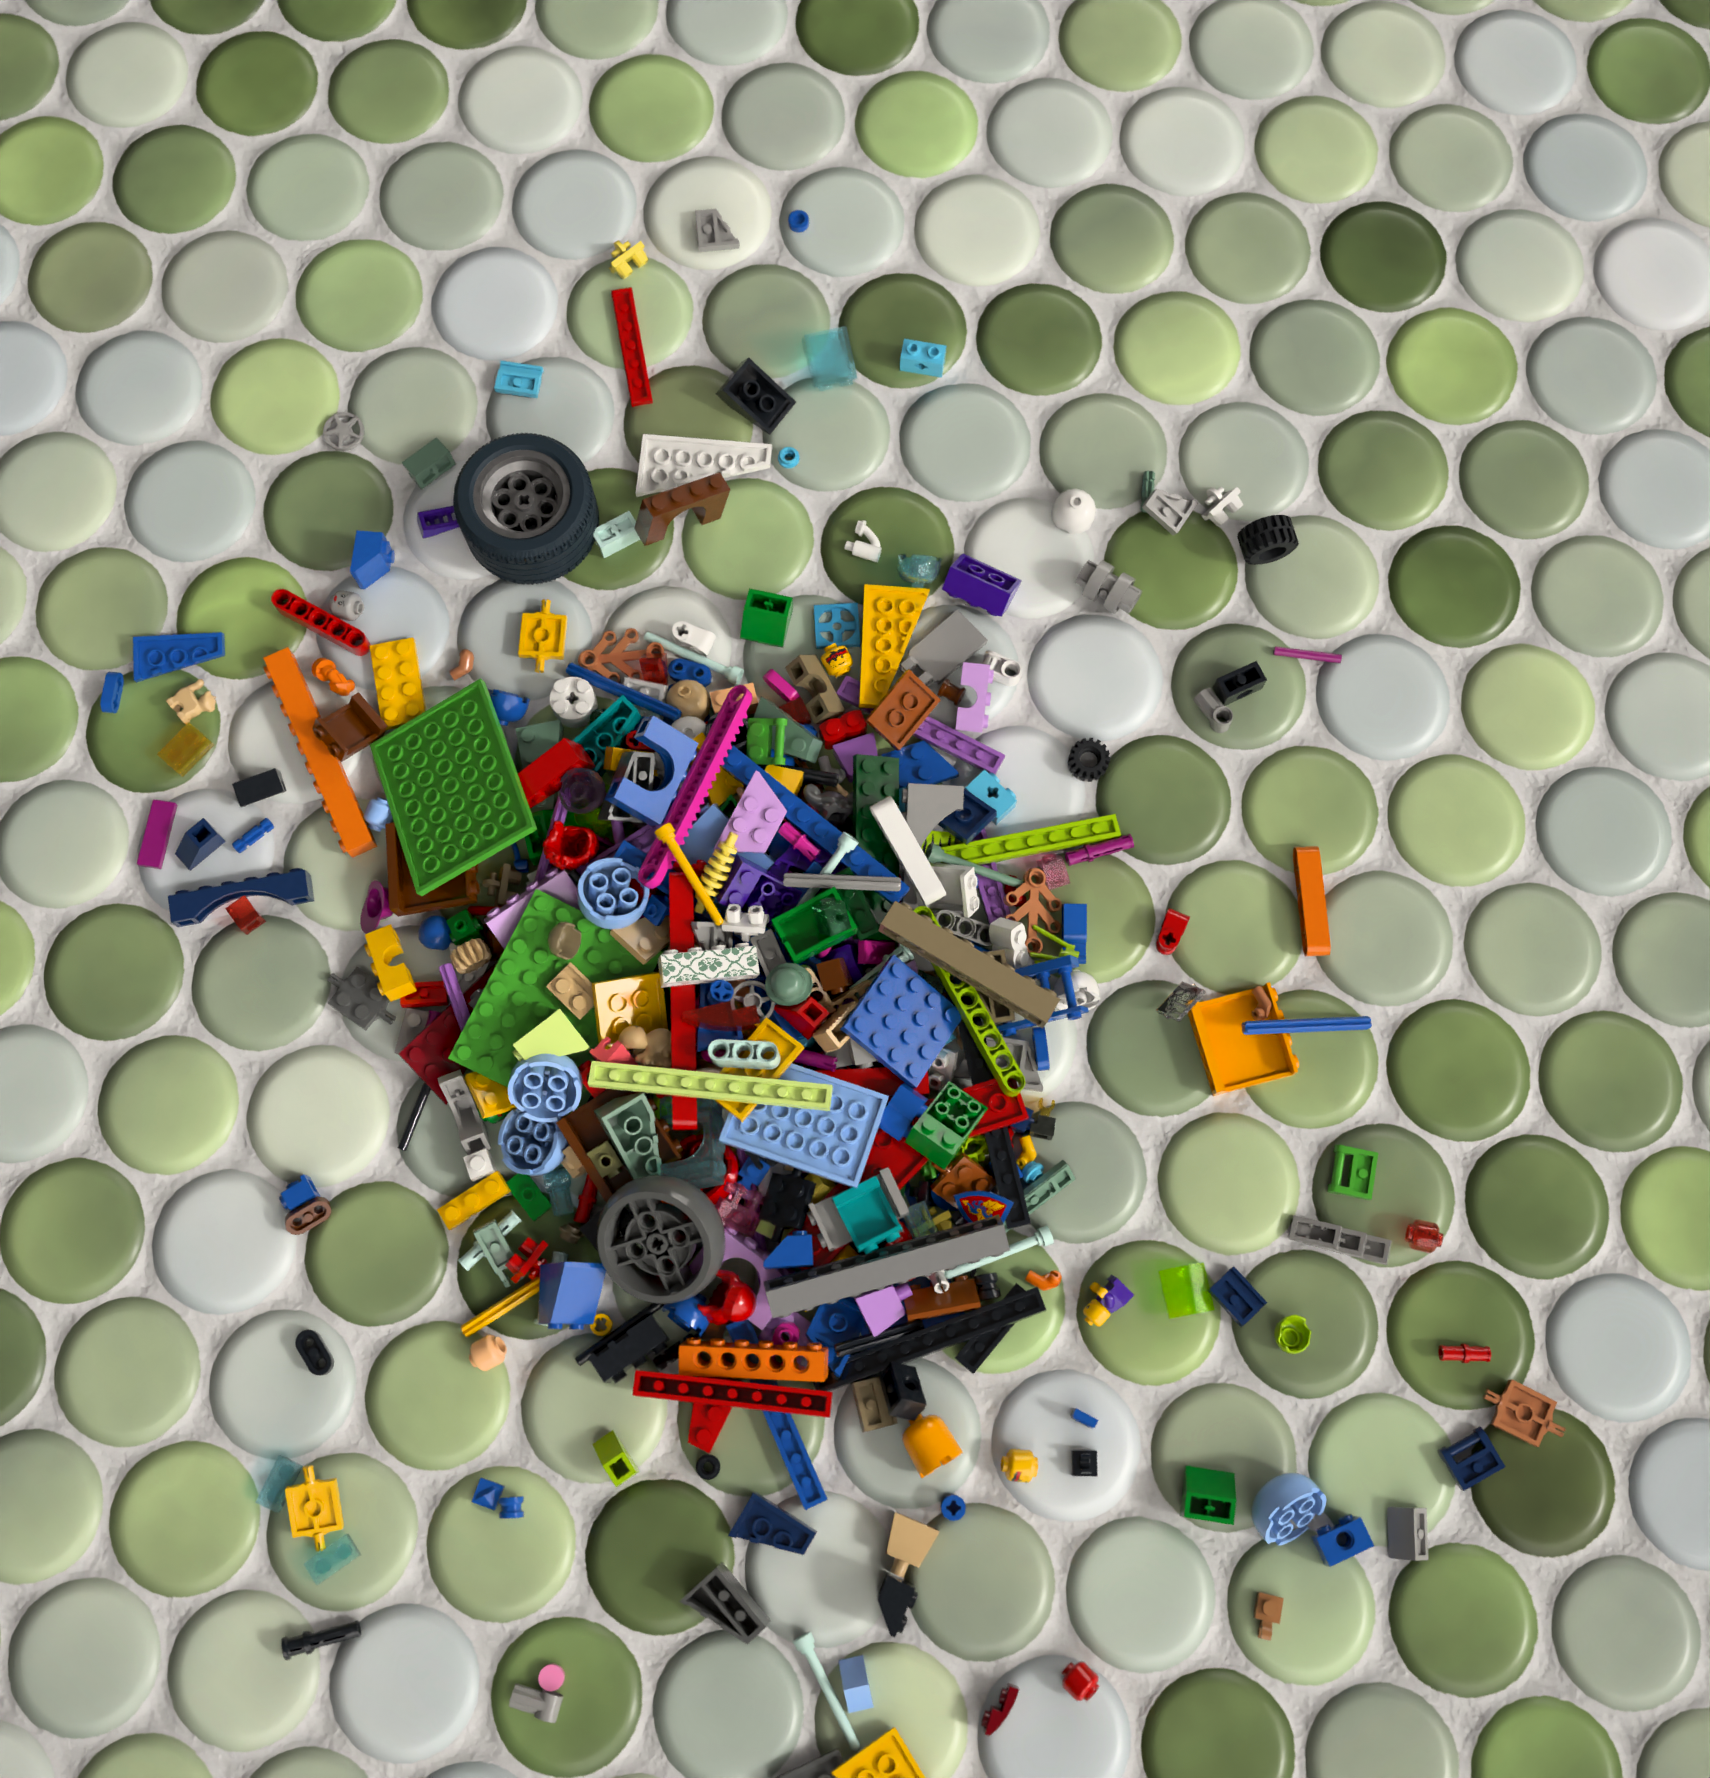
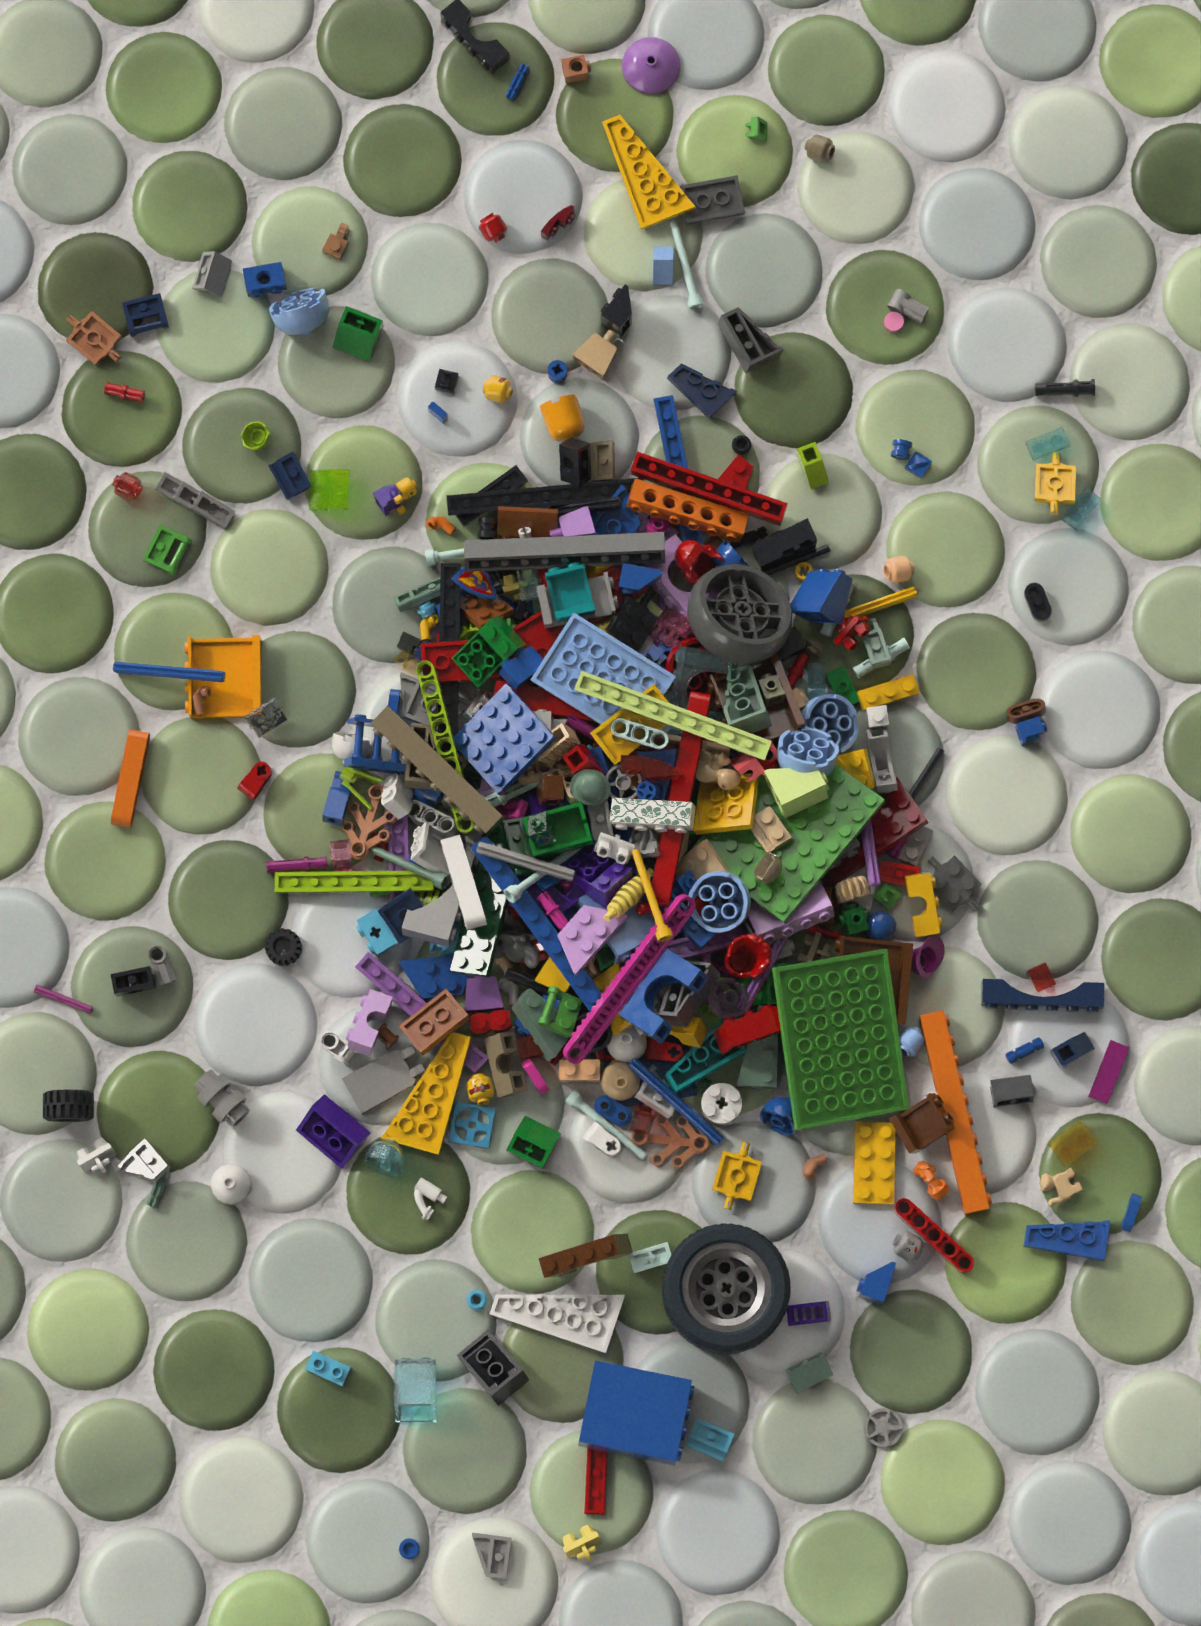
camera: 165 degrees left, 5 degrees up
(431, 966) = (887, 896): none -> bright green tile
(597, 378) = (636, 1413): none -> blue container

